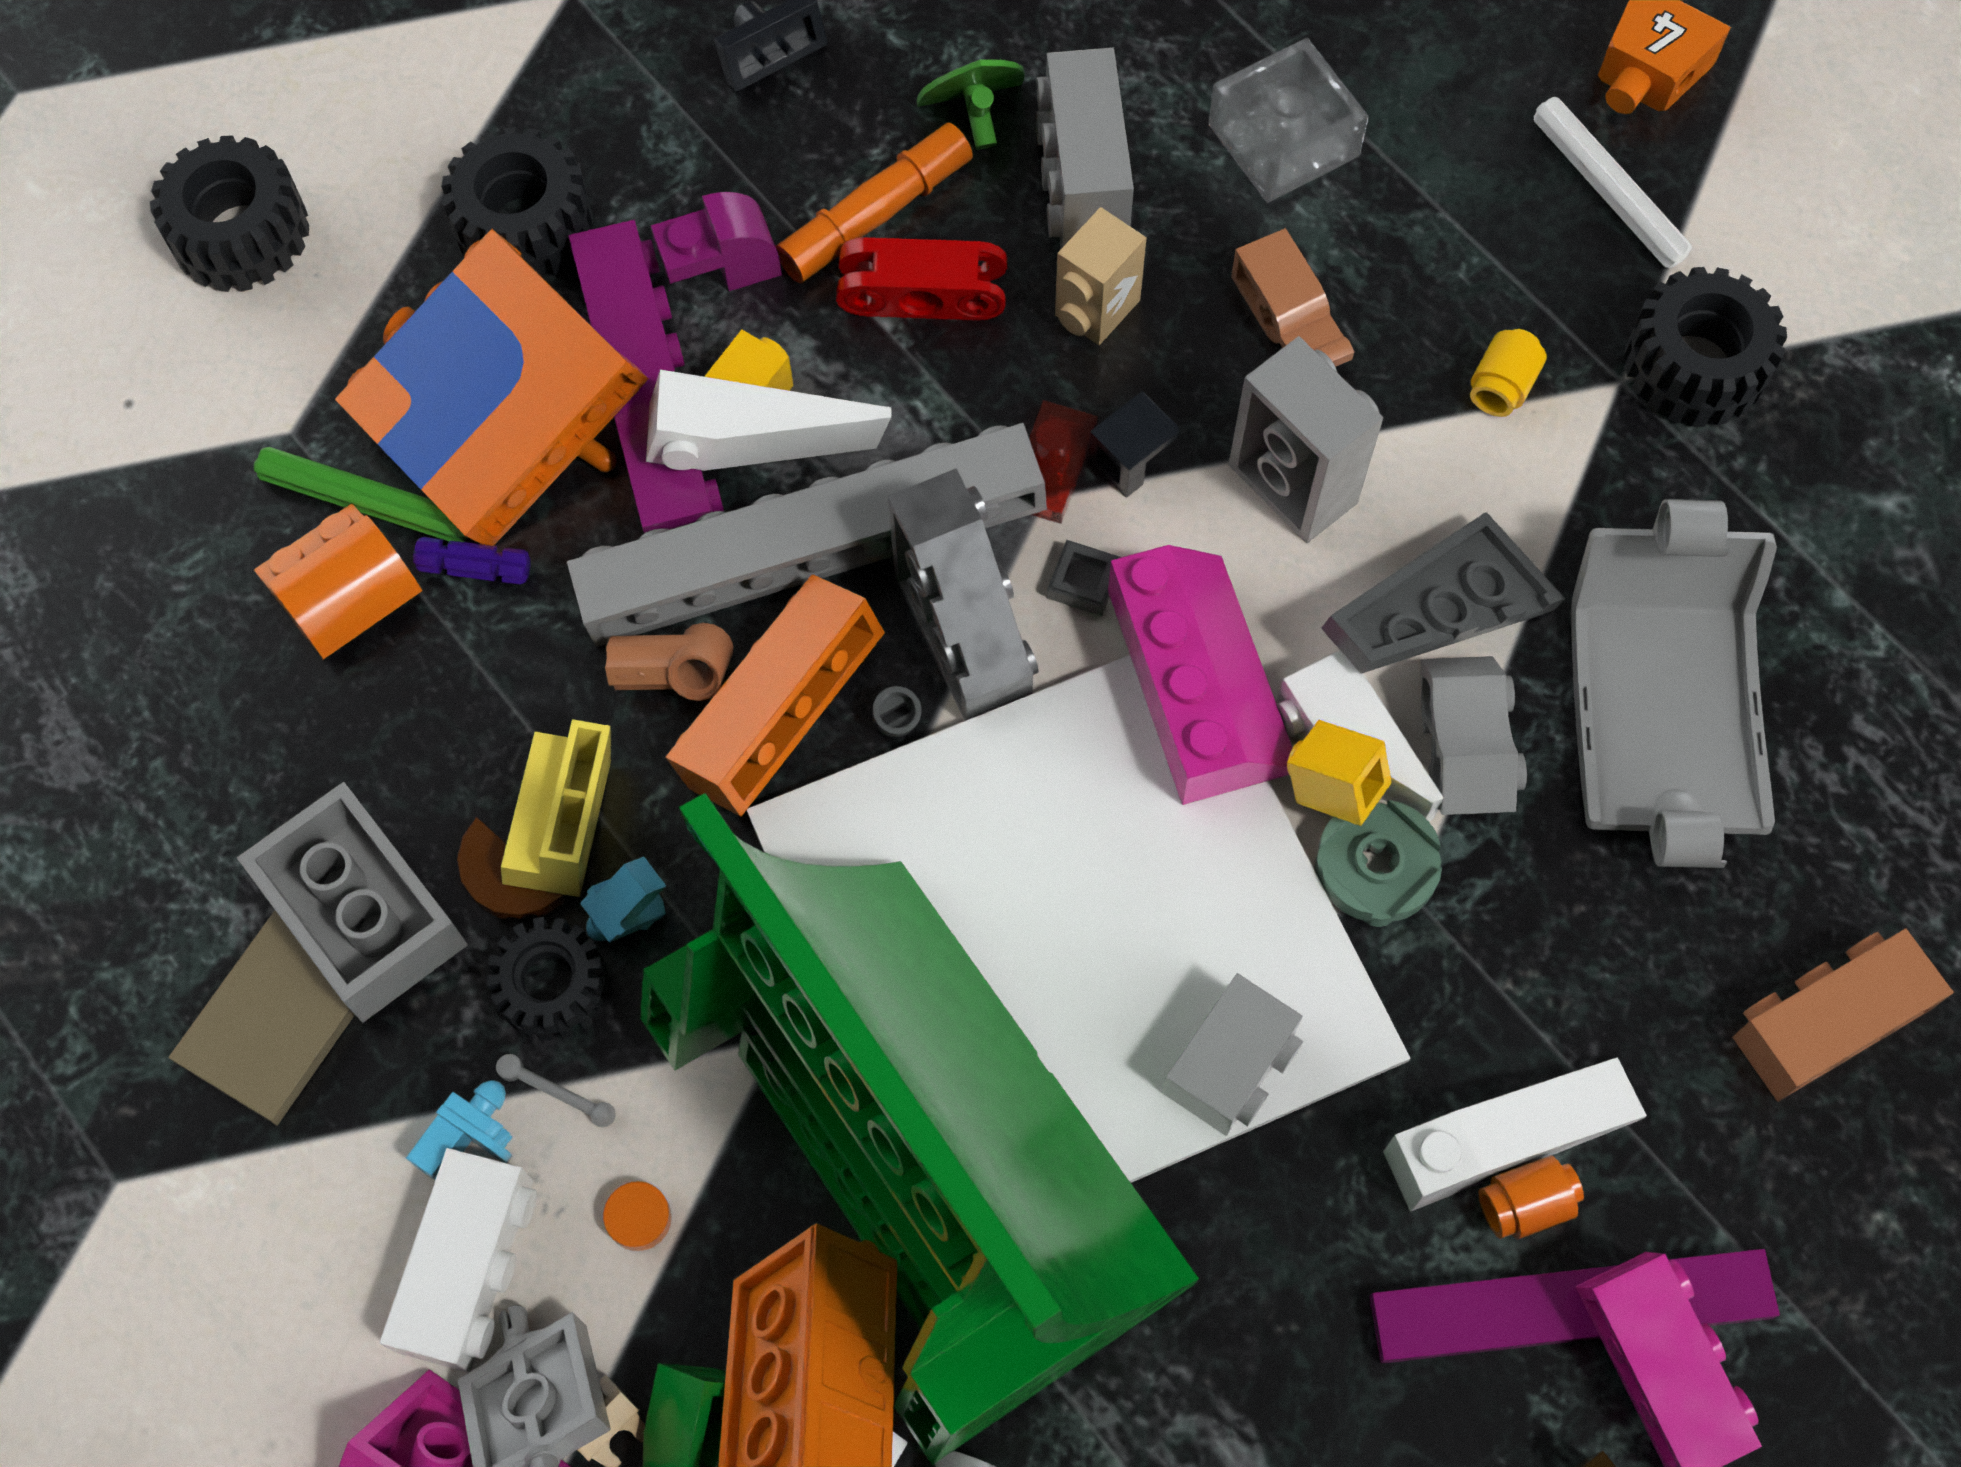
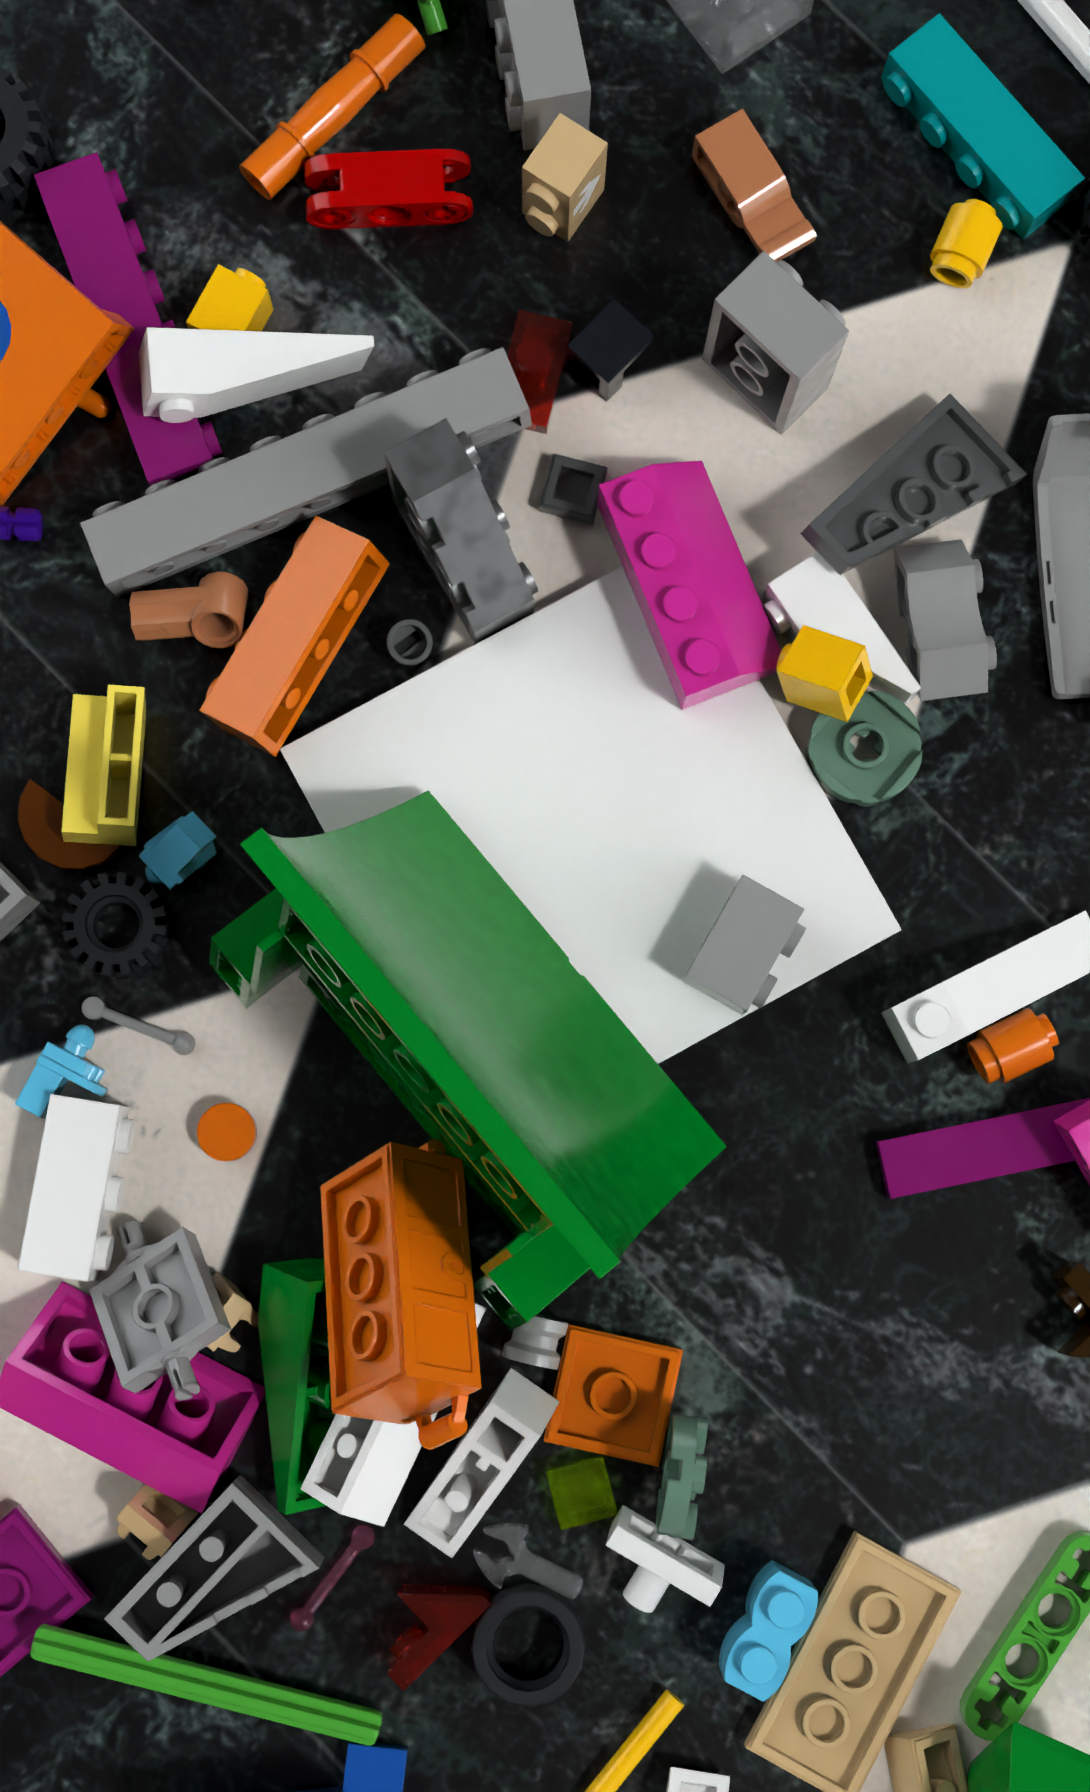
camera: 10 degrees left, 15 degrees up
(724, 236) = (186, 163): magenta brick -> none
(1528, 267) = (980, 127): none -> teal brick

